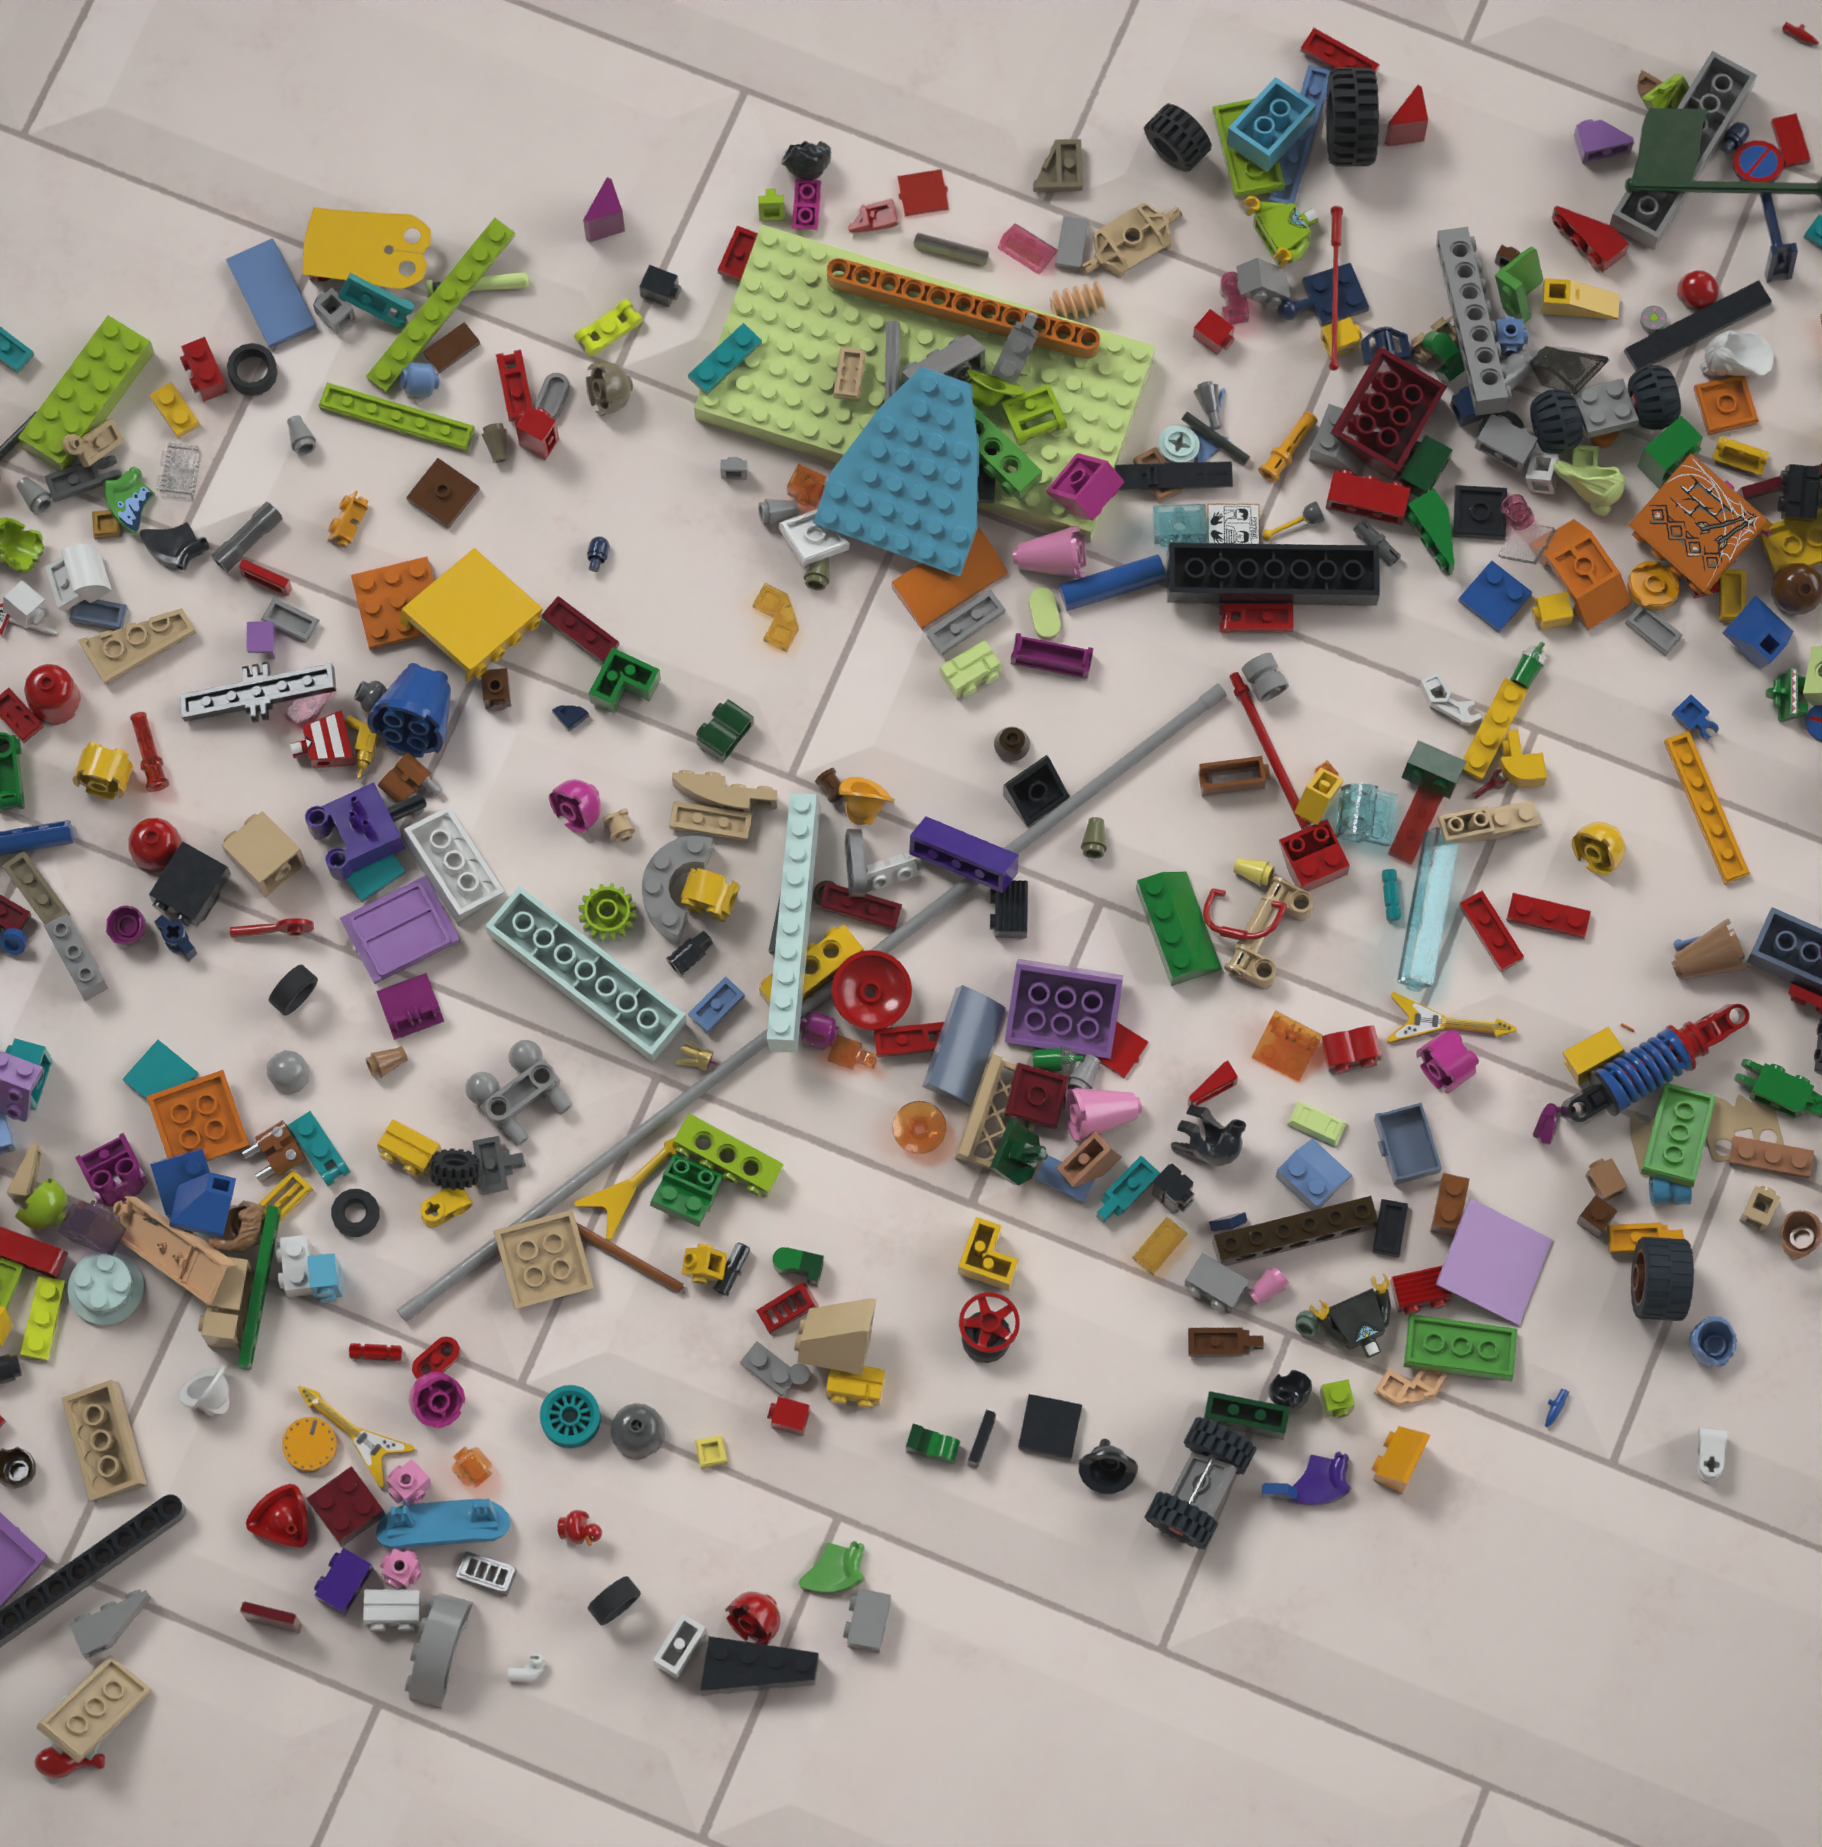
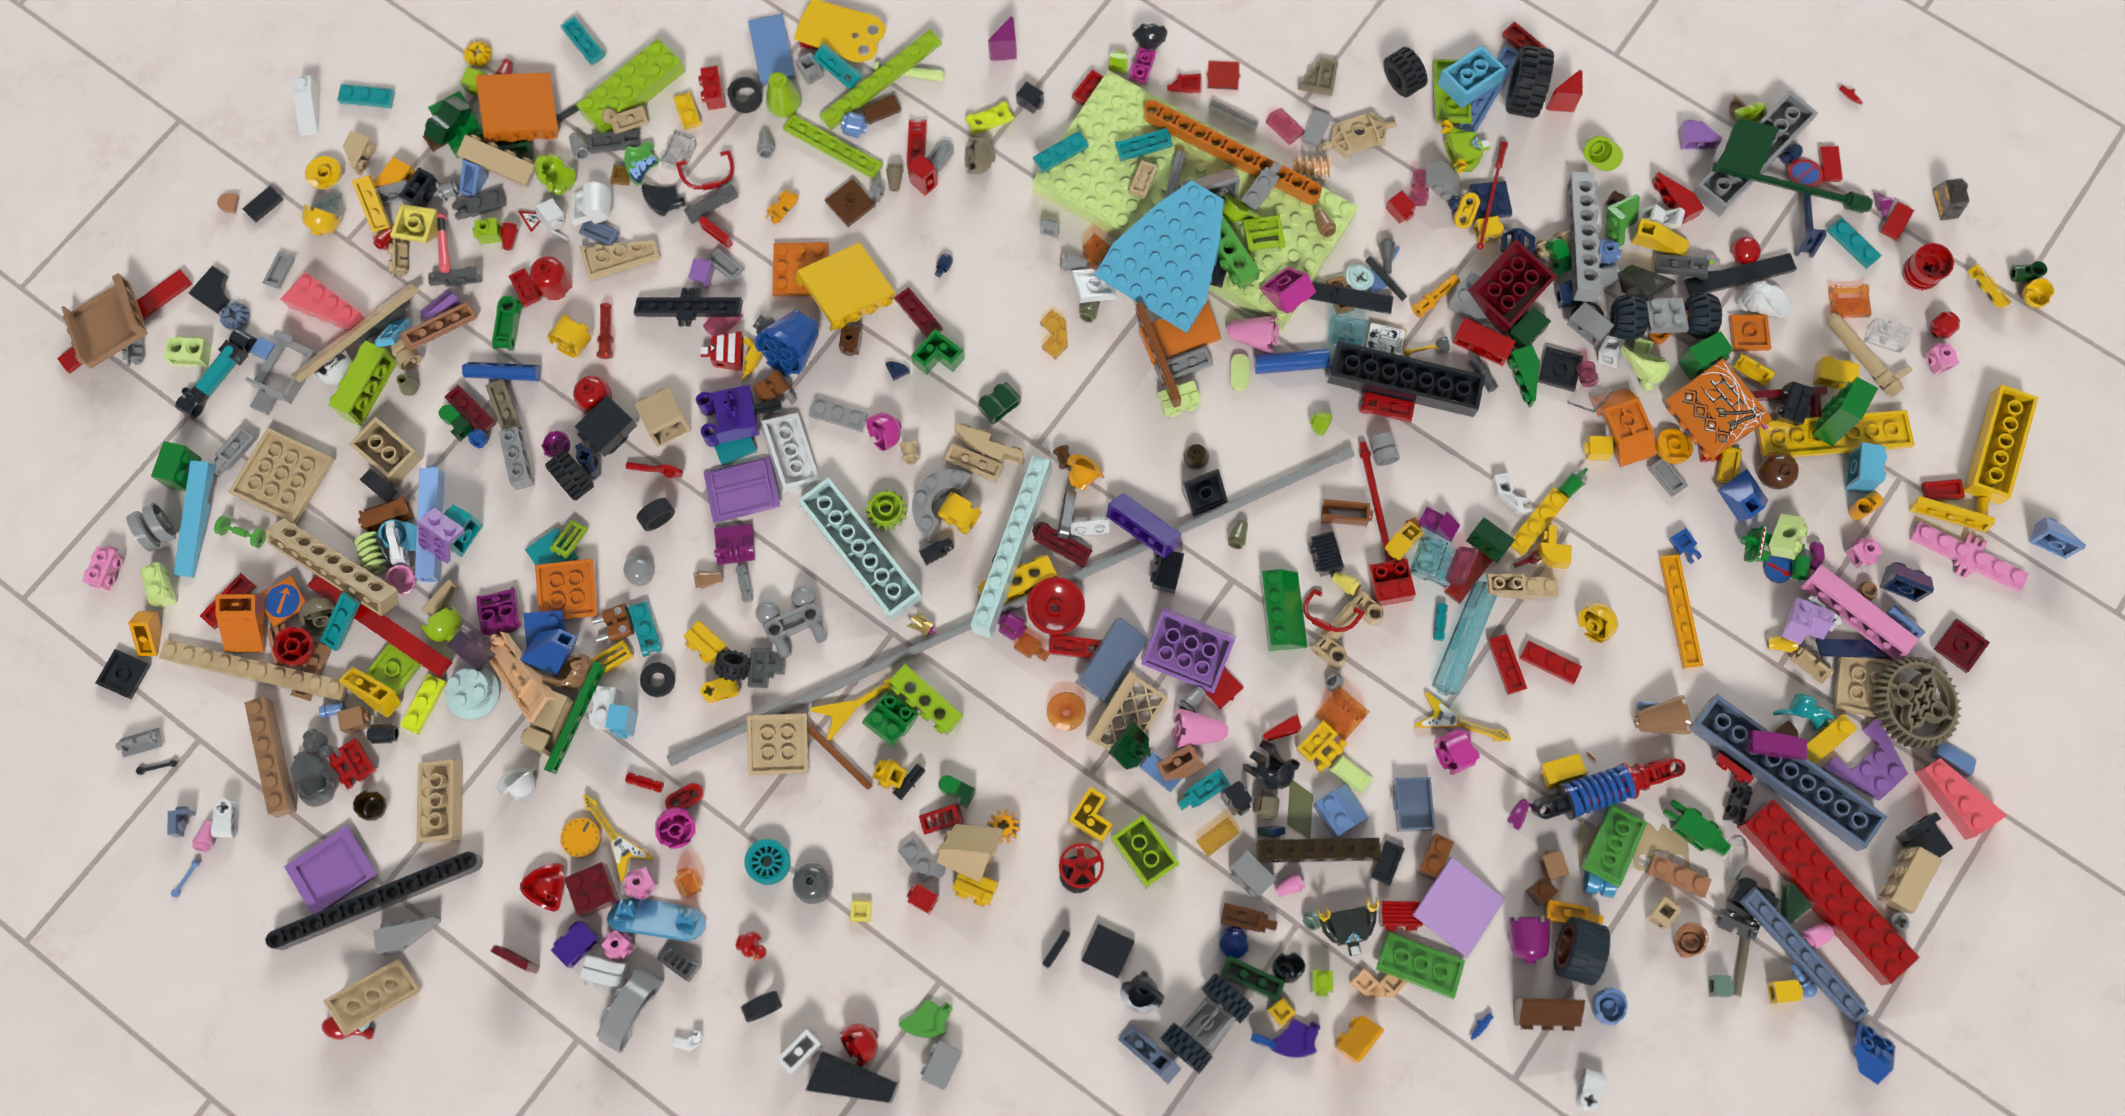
camera: 15 degrees right, 0 degrees up
(160, 963) = (569, 475): none -> black tyre
(175, 1069) = (560, 551): none -> lime tile
(239, 510) = (710, 185): none -> red piece
(307, 361) = (782, 96): none -> lime cone
(438, 1057) = (744, 584): none -> light grey axle
(477, 468) = (876, 191): none -> light grey plate
(505, 796) = (838, 415): none -> light grey plate
(716, 1005) = (945, 591): medium blue plate -> none
(838, 323) = (1143, 144): none -> teal plate
(880, 1290) = (1004, 818): none -> light orange gear
(928, 616) = (1158, 355): none -> dark orange tile
(932, 1444) = (1019, 944): leg -> none
(1036, 1096) = (1154, 708): dark red plate -> none
(1051, 657) = (1238, 402): magenta container -> none
(1056, 1059) = (1174, 685): green piece -> none
(1068, 1286) = (1144, 851): none -> lime brick
(1114, 382) = (1324, 223): none -> medium nougat cone
(1136, 1542) = (1150, 1054): none -> sand blue slope
(1171, 659) = (1320, 422): none -> lime cone
(1211, 1375) = (1233, 942): none -> clear blue hair
(1213, 1189) = (1266, 805): none -> dark tan head
(1218, 838) = (1326, 554): none -> black brick
(1260, 1185) = (1300, 809): none -> olive sticker
(1262, 1091) = (1316, 743): none -> yellow plate
(1266, 1006) = (1333, 681): none -> light grey plate
(1294, 1449) = (1281, 1011): none -> yellow tile
(1308, 317) = (1465, 210): none -> yellow plate
(1351, 1049) = (1388, 726): red brick -> none
(1360, 762) = (1439, 524): none -> magenta slope
(1401, 812) = (1461, 565): none -> clear pink slope
(1475, 194) = (1603, 153): none -> lime piece
(1495, 596) = (1559, 429): blue plate -> none
(1582, 270) = (1669, 219): none -> white brick
(1593, 1279) = (1529, 938): none -> magenta cylinder
(1614, 332) = (1682, 266): none -> dark grey plate
(1636, 1368) = (1548, 1013): none -> reddish brown slope

